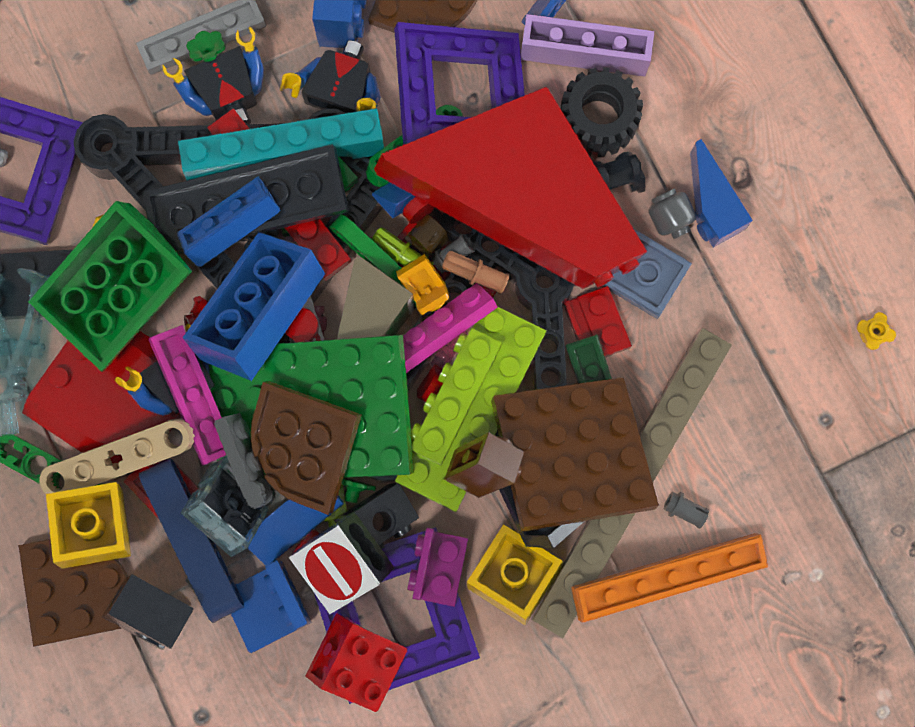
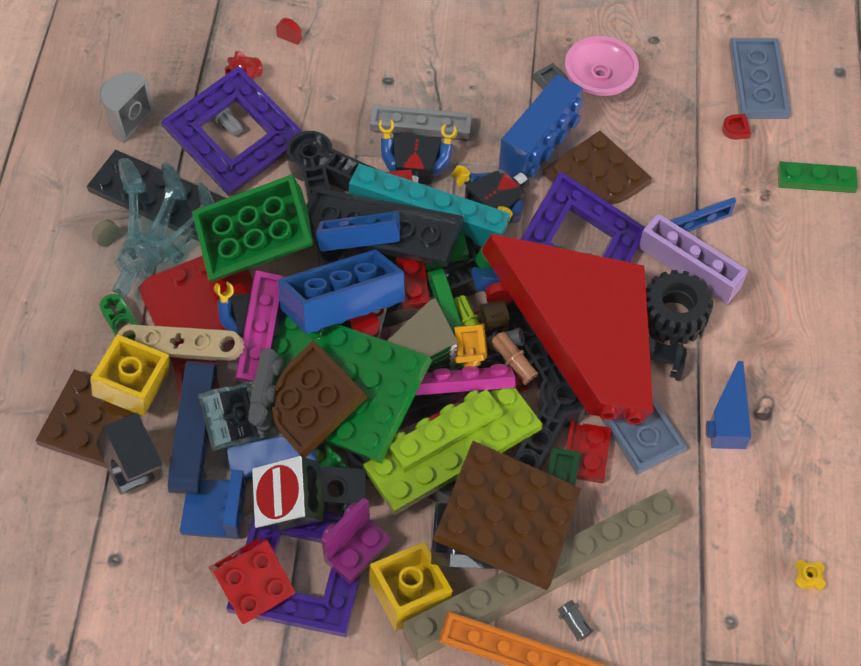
camera: 30 degrees right, 20 degrees down
(205, 46) = (418, 127): green plant -> none
(485, 465) = (435, 478): reddish brown brick -> none
(672, 213) = (691, 403): dark grey head -> none

